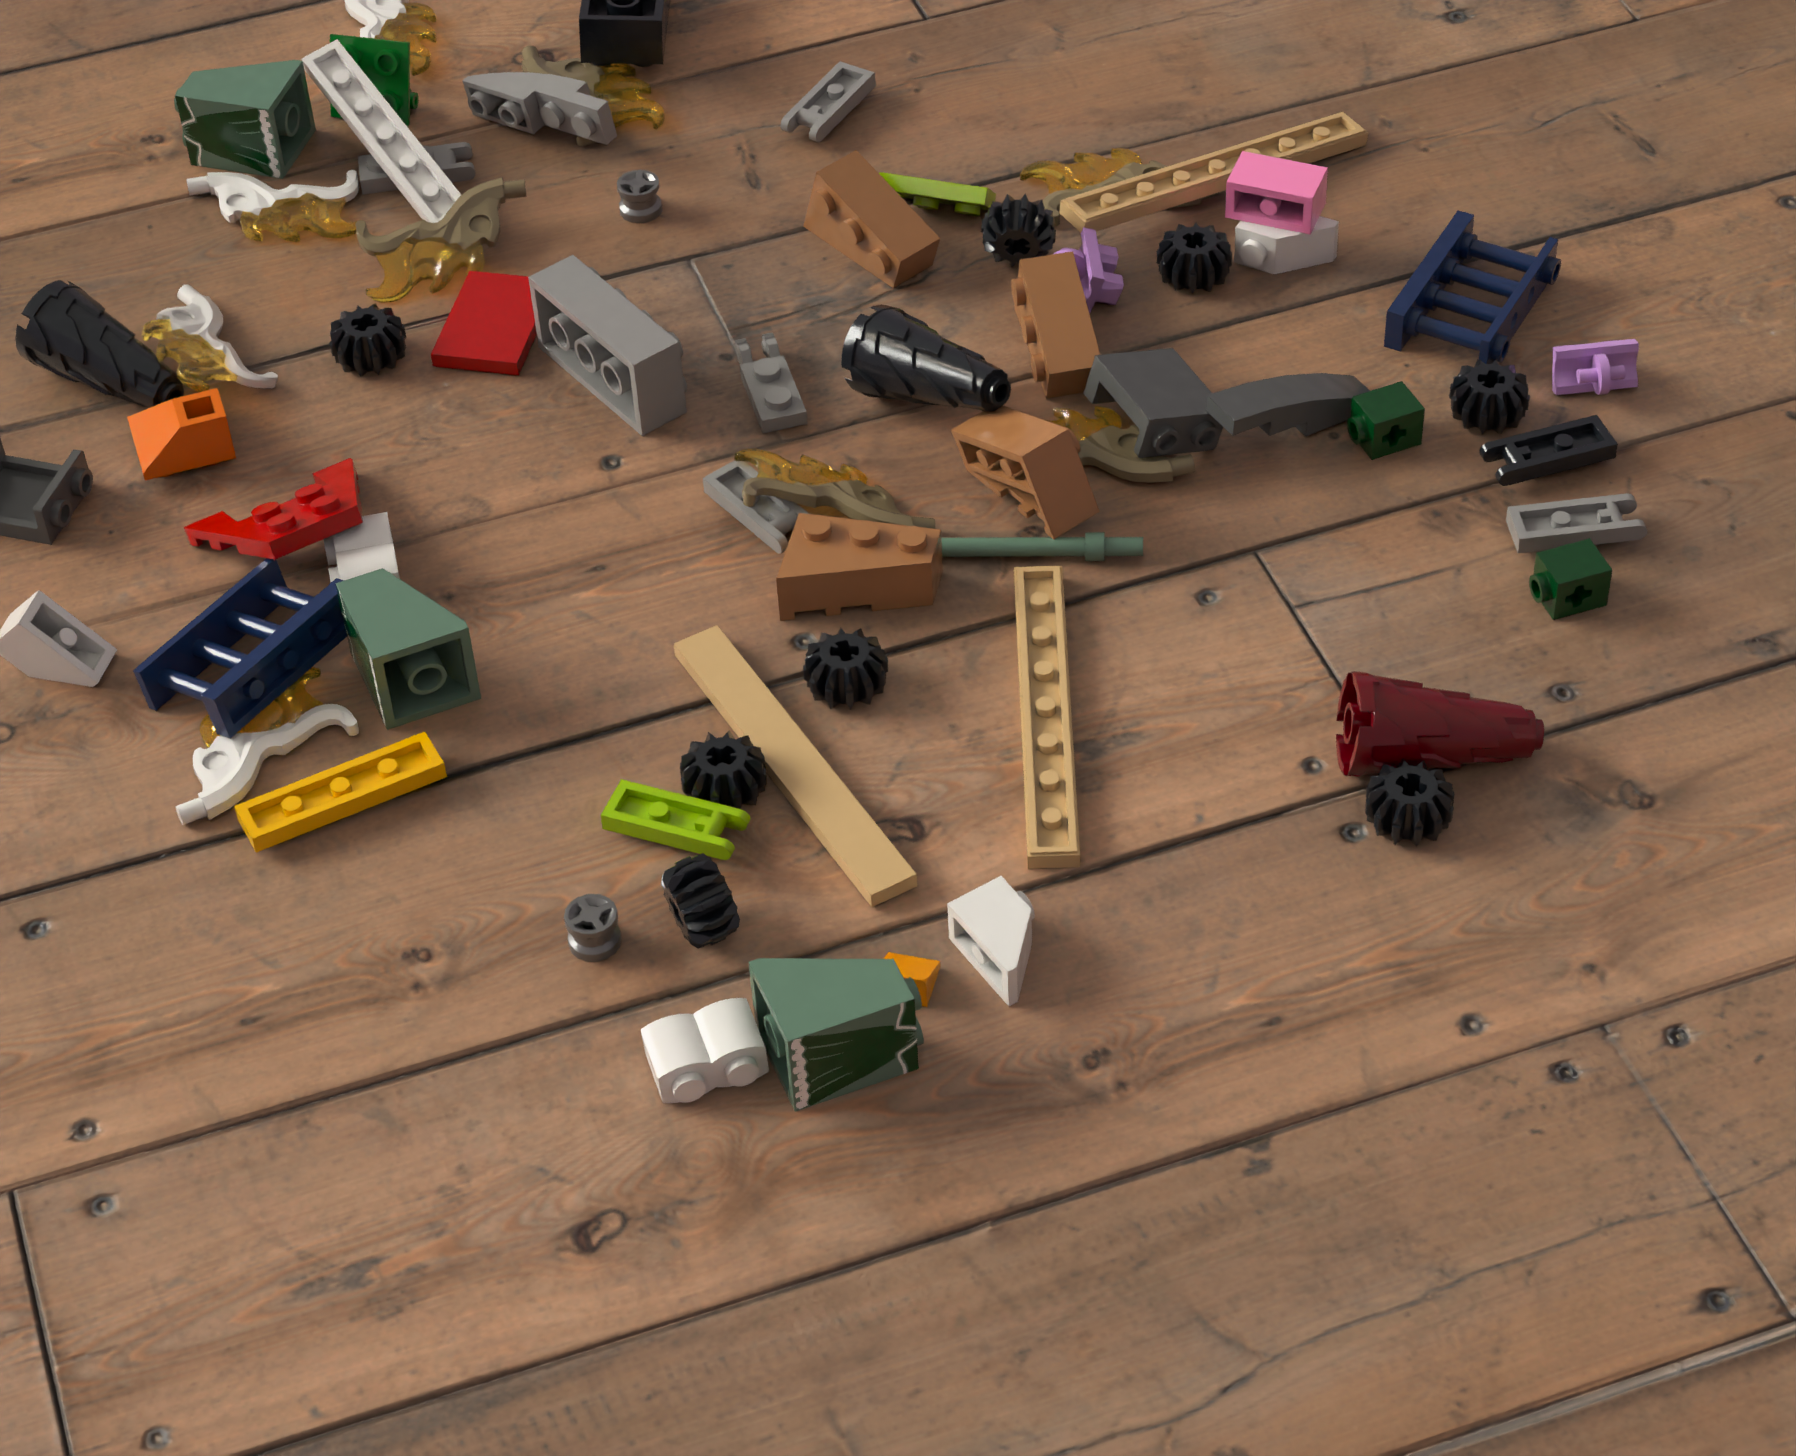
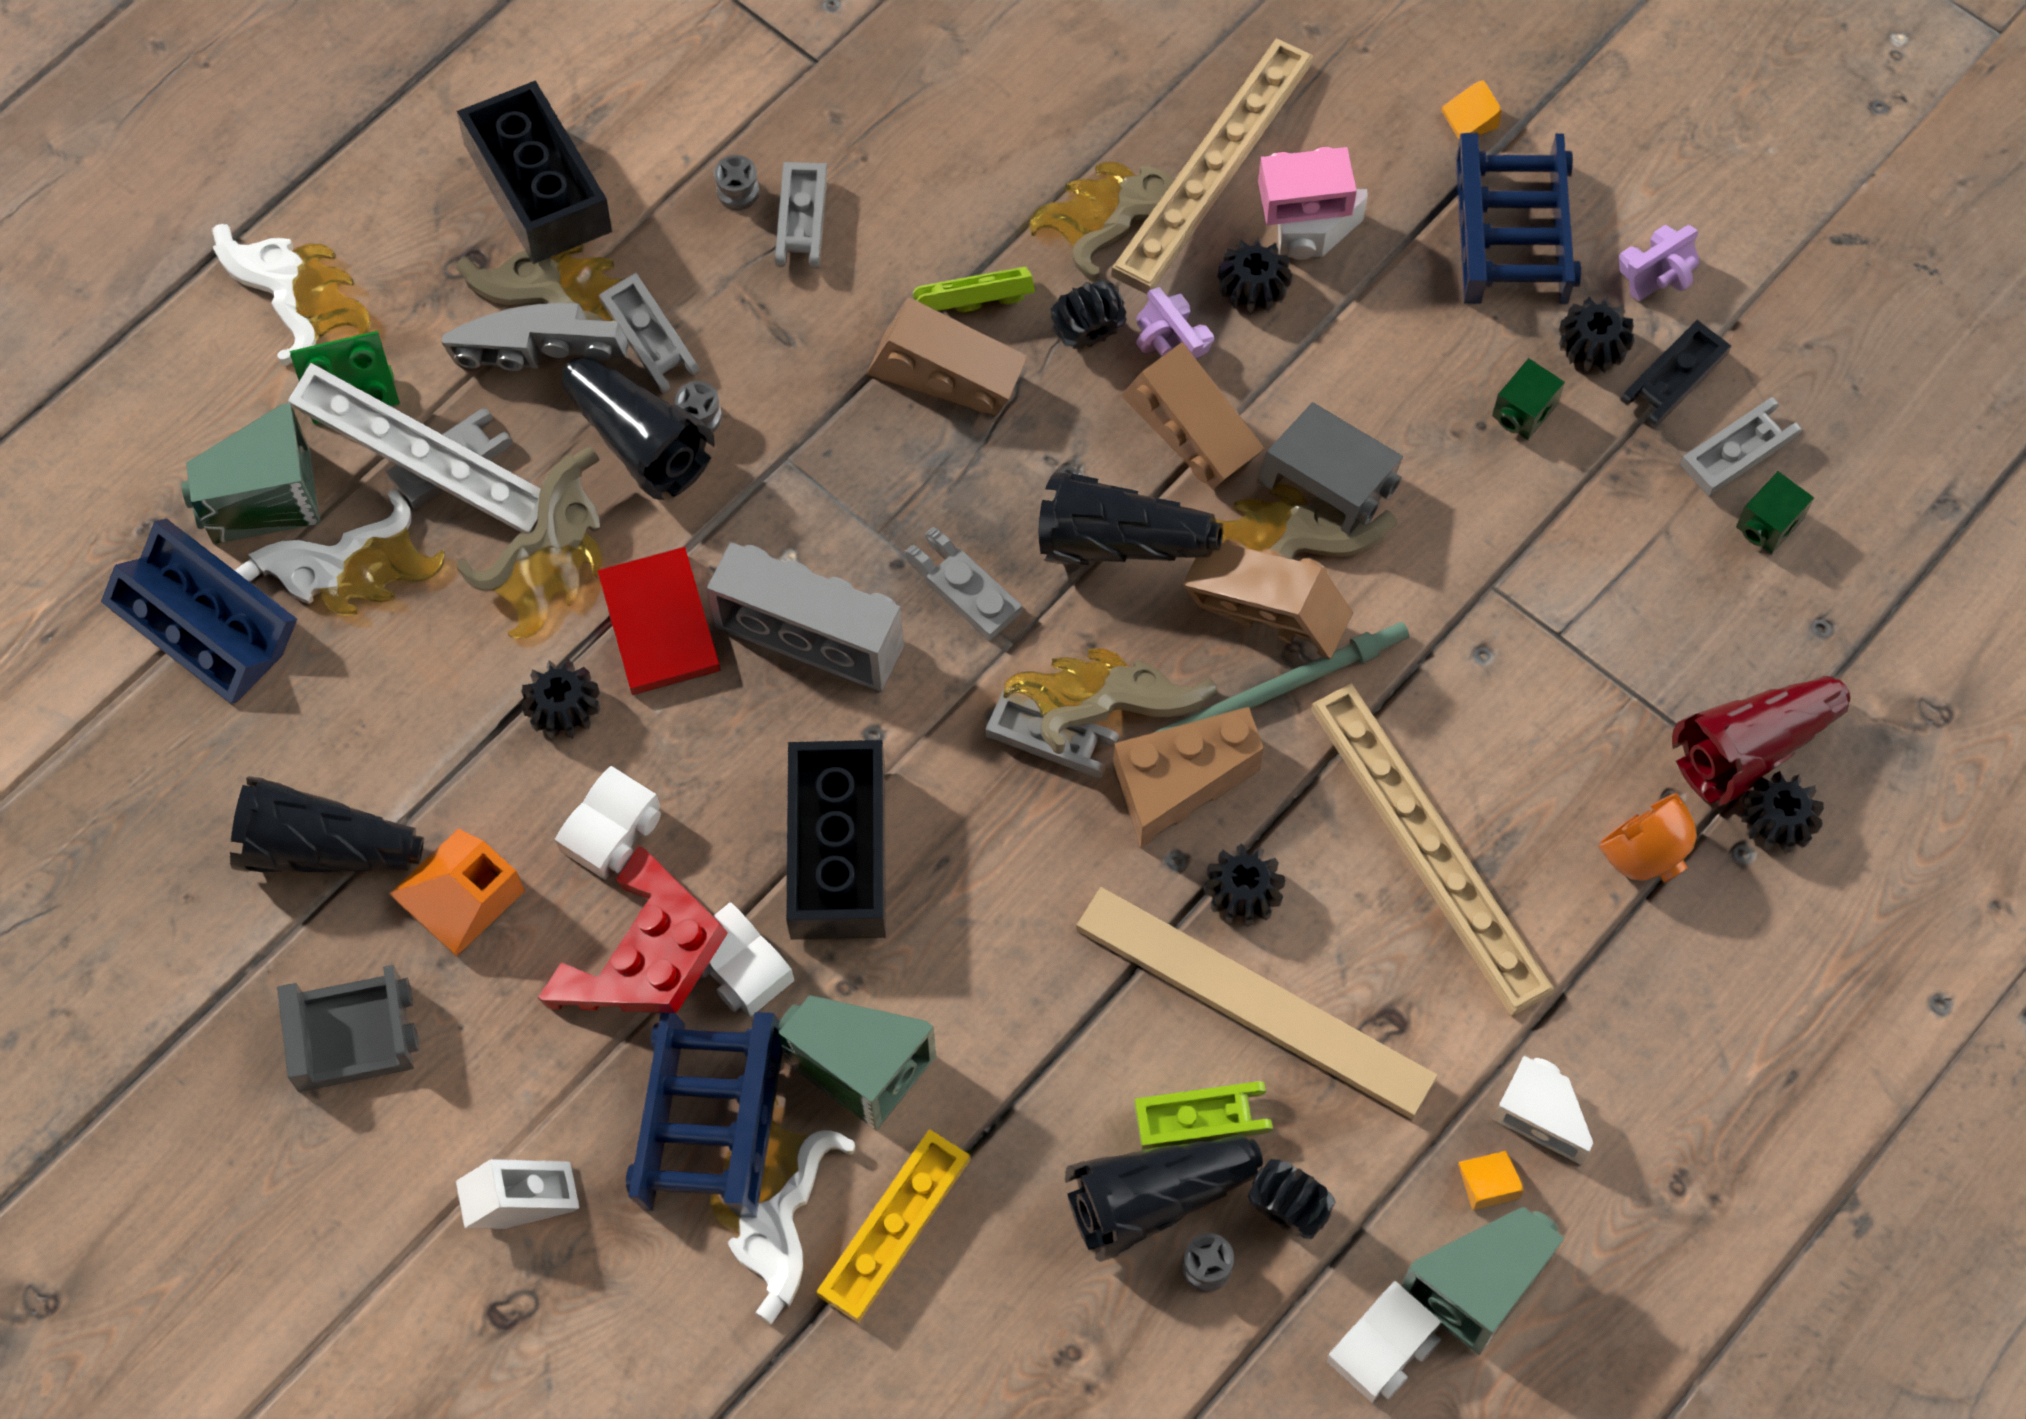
camera: 30 degrees left, 20 degrees up
(140, 195) = (200, 611): none -> dark blue slope
(191, 339) = (399, 784): piece -> none
(338, 430) = (609, 823): none -> white brick
(509, 503) = (836, 840): none -> black brick
(562, 843) = (1154, 1188): none -> black cone
(579, 193) = (650, 437): none -> black cone
(638, 129) = (647, 329): none -> light grey hinge
(724, 770) = (1195, 1043): black gear -> none
(792, 66) = (740, 172): none -> flat silver wheel
(1256, 767) = (1653, 841): none -> orange cylinder
(1285, 402) = (1444, 419): dark grey slope -> none
(1492, 213) = (1473, 110): none -> light orange slope

